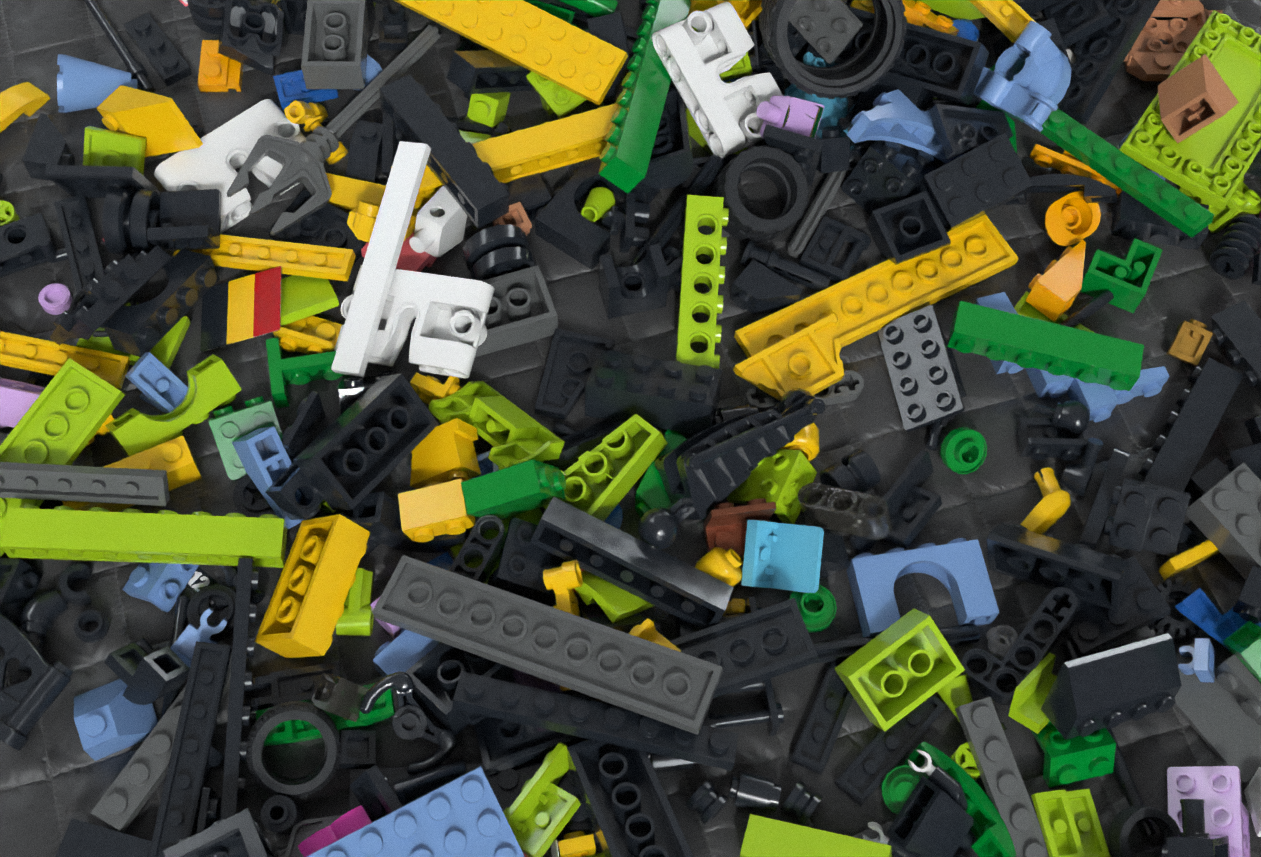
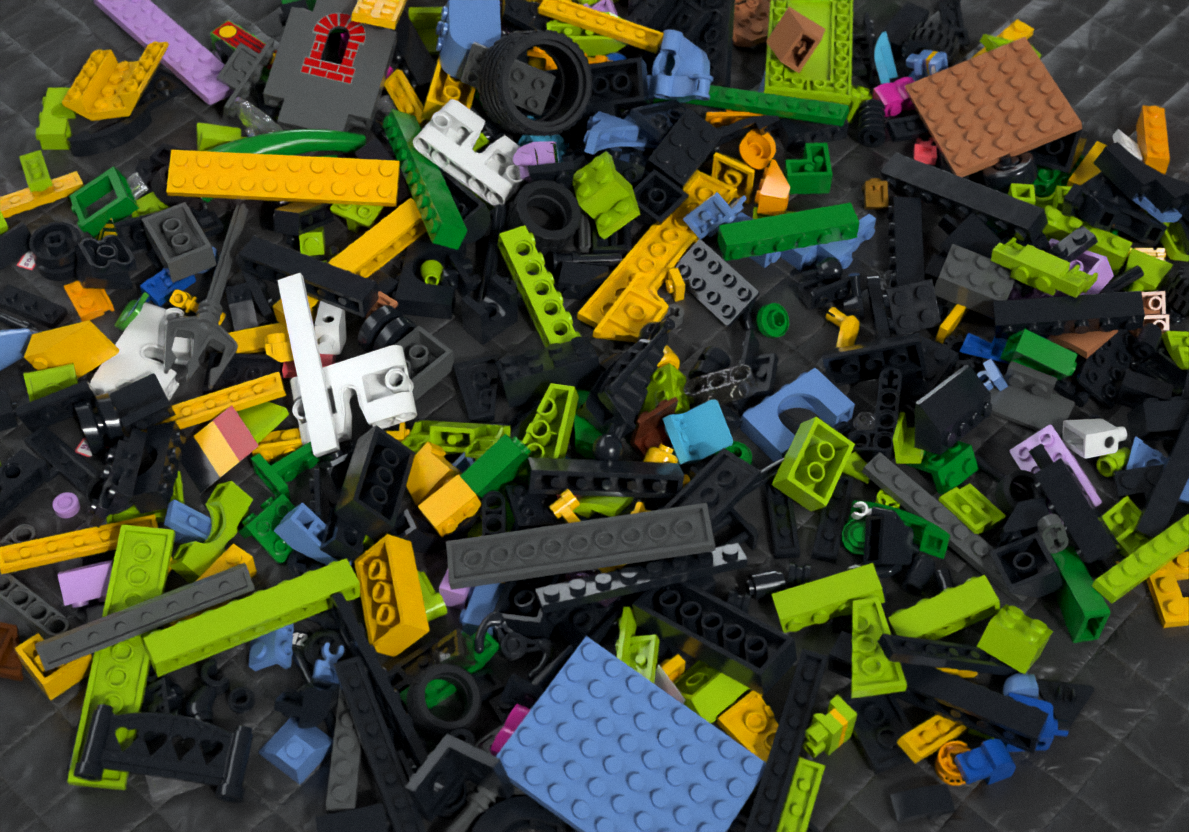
camera: 25 degrees left, 10 degrees down
(247, 102) = (130, 312): none -> bright green arm
(846, 199) = (605, 195): none -> lime bracket
(872, 348) = (675, 284): none -> yellow plate
(964, 281) = (711, 213): none -> medium blue bracket
(1025, 237) = (734, 174): none -> yellow slope
(1088, 309) = (802, 198): black bar -> none

